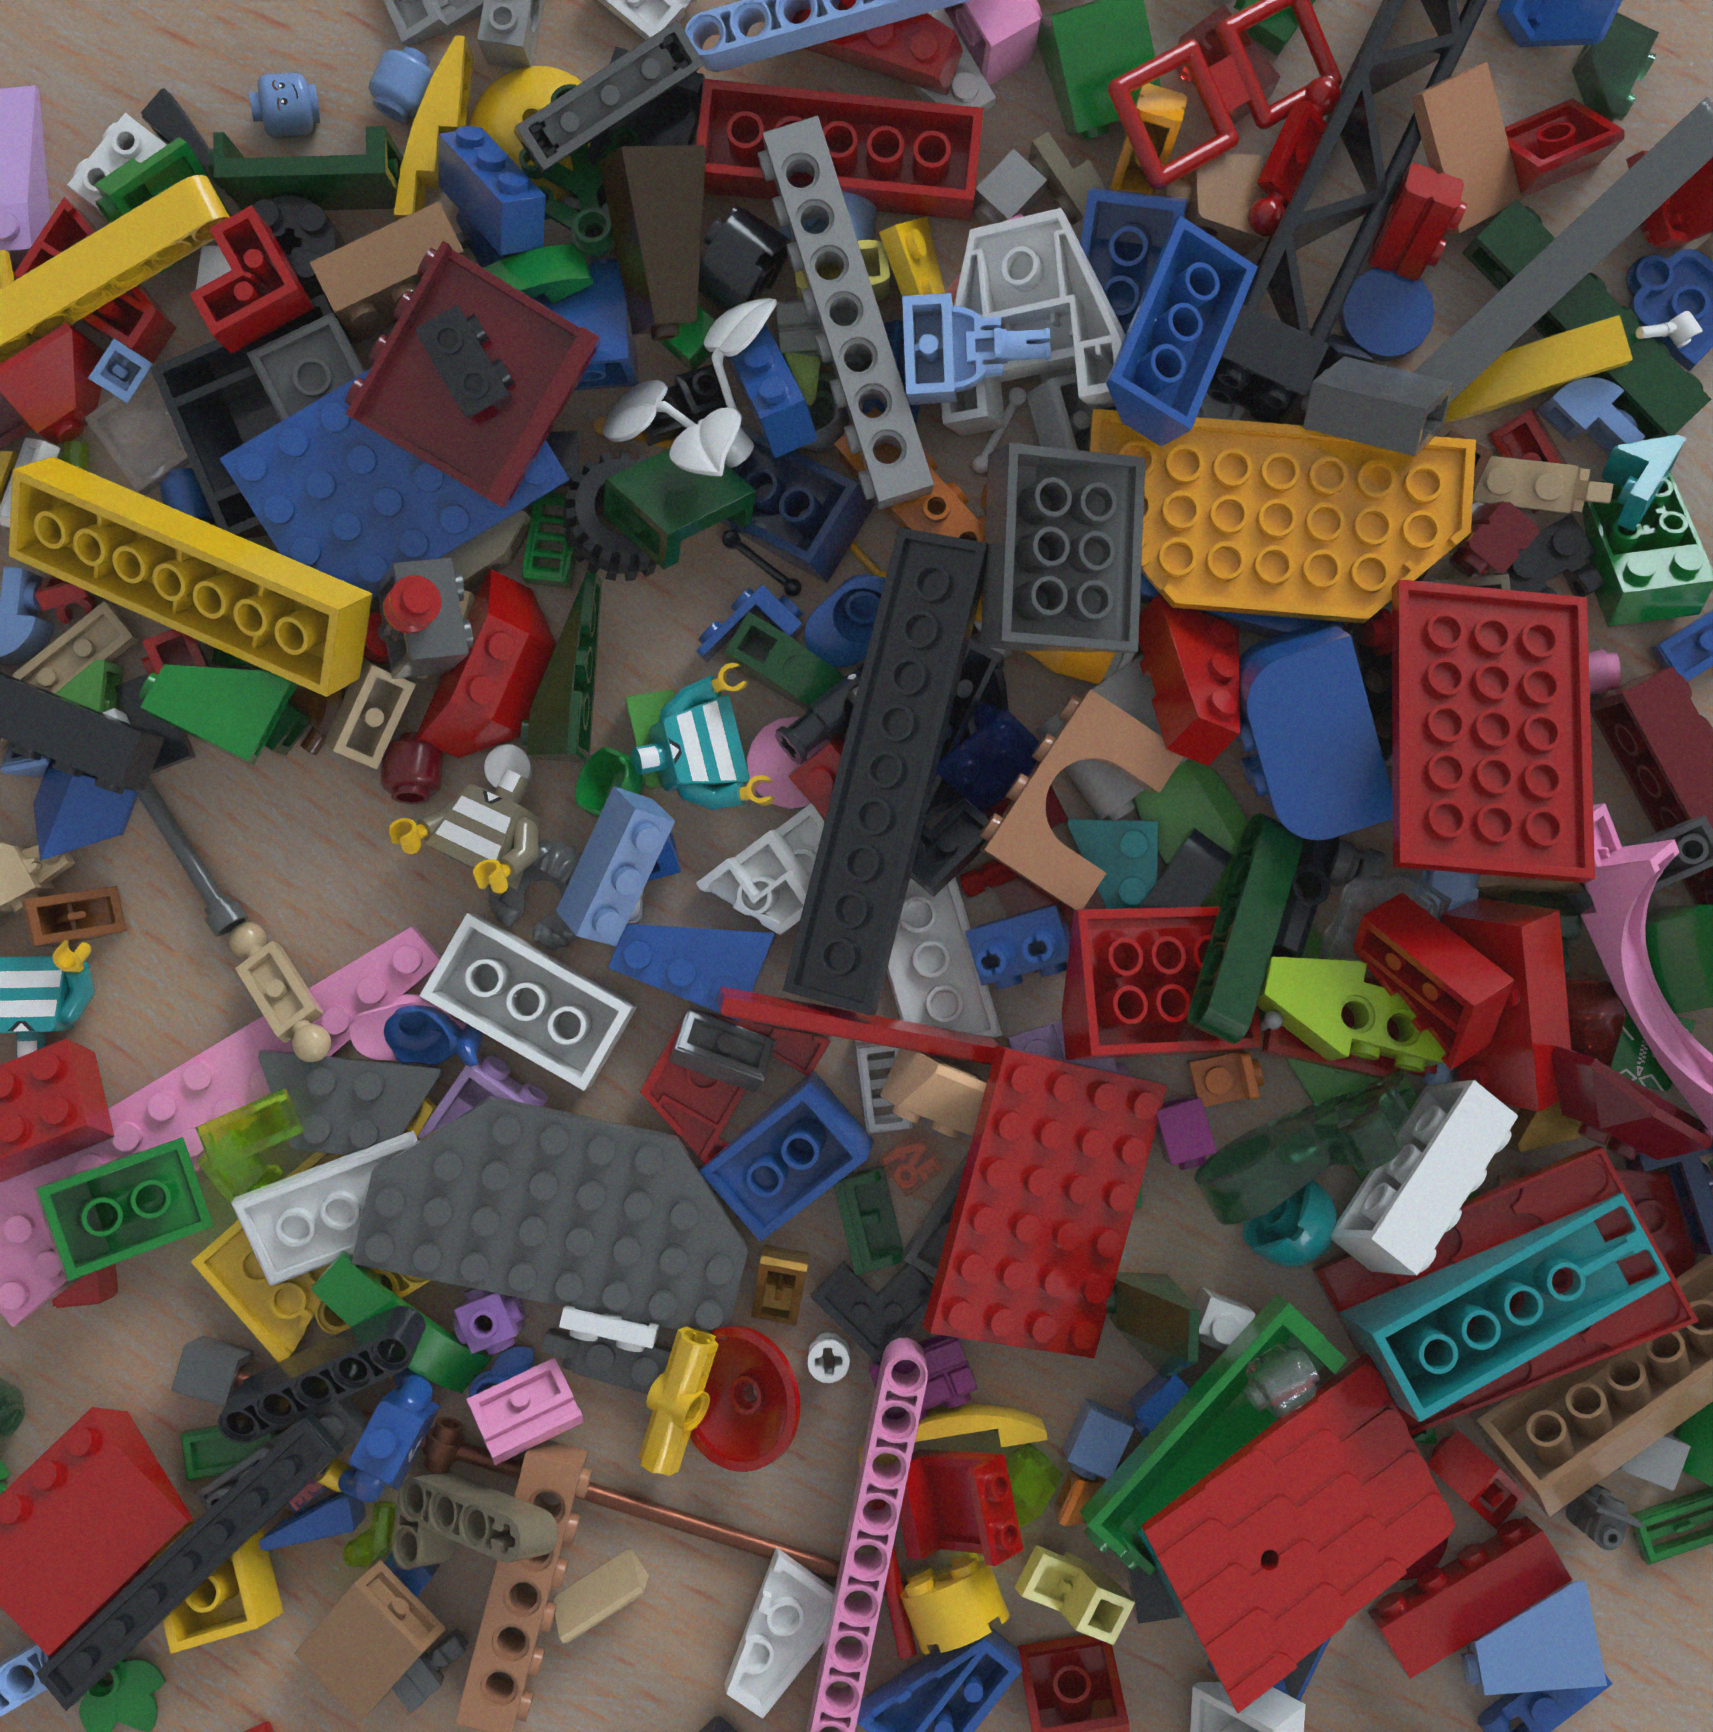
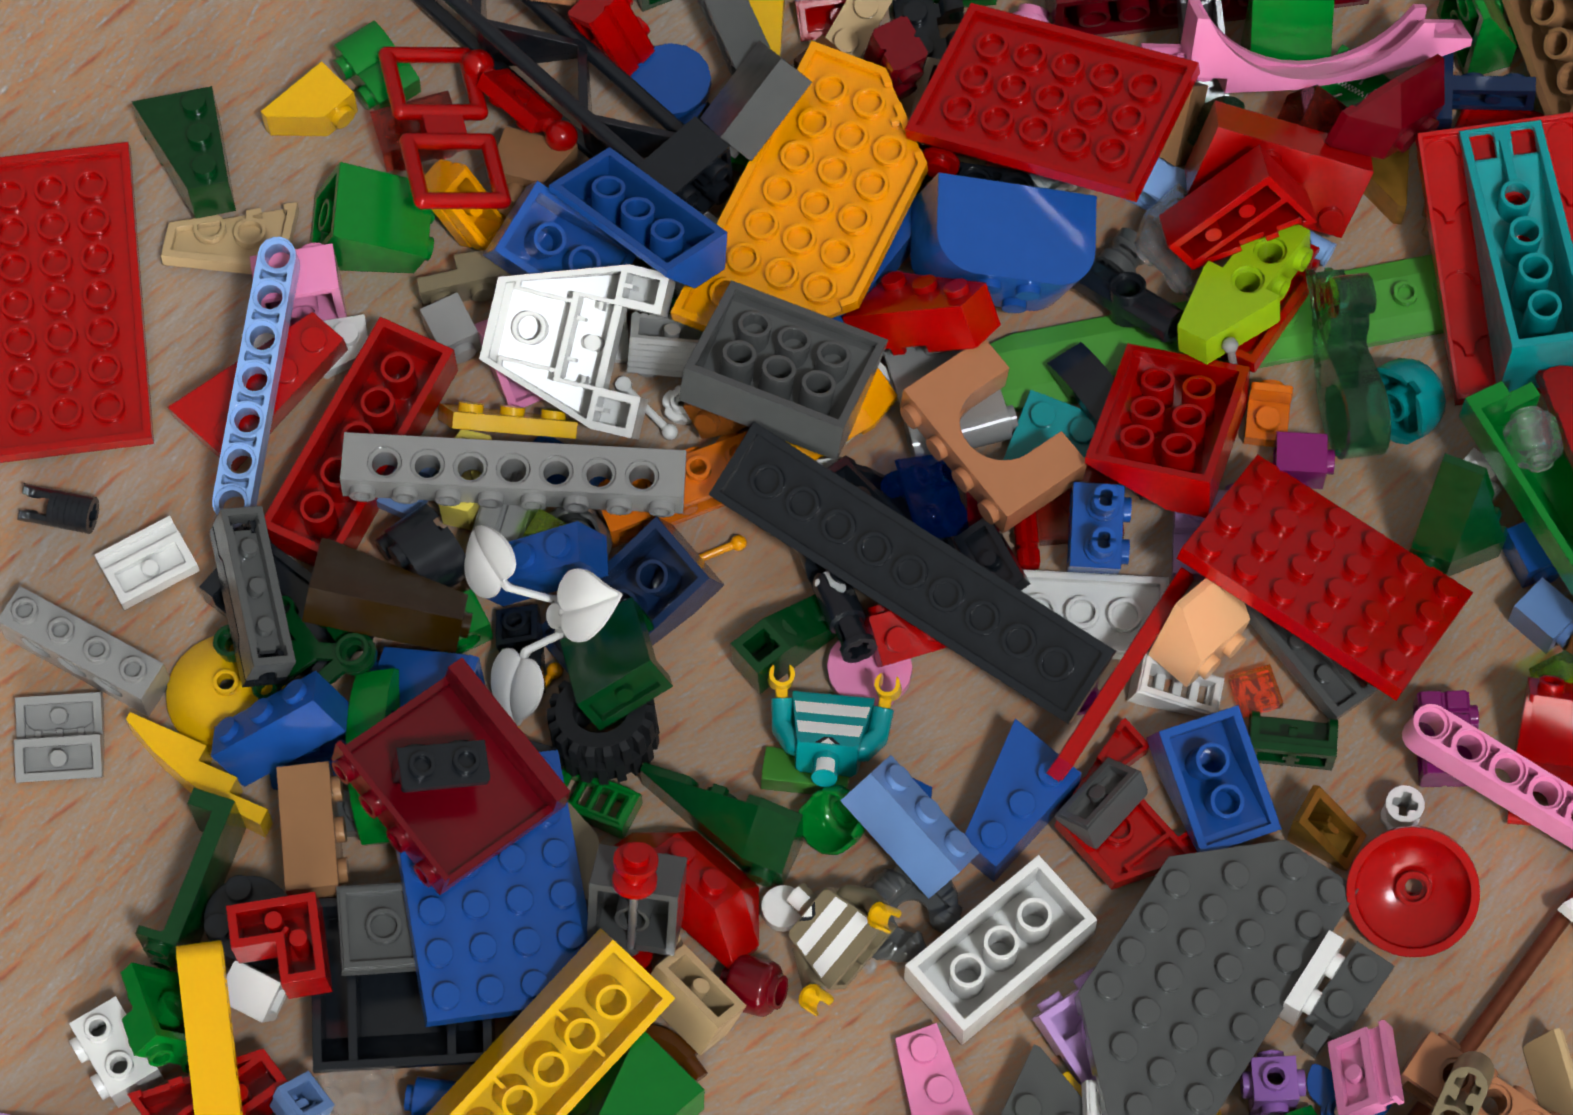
camera: 70 degrees left, 20 degrees down
(170, 122) = (95, 989): black slope -> none
(285, 104) = (116, 890): medium blue head -> none
(400, 83) = (142, 785): medium blue head -> none
(414, 1033) = (994, 1056): blue hair -> none
(678, 1401) = (1399, 944): yellow piece -> none
(732, 541) = (713, 619): black hinge -> none
(772, 873) = (962, 707): white slope -> none
(778, 612) = (719, 656): blue bracket -> none
(844, 621) = (765, 569): blue piece -> none
(870, 1316) = (1381, 757): black plate -> none
(956, 348) = (576, 403): light blue brick -> none
(1012, 1425) = (1508, 688): yellow slope -> none
(1245, 929) = (1146, 344): dark green beam -> none
(1420, 1192) = (1413, 285): white brick -> none

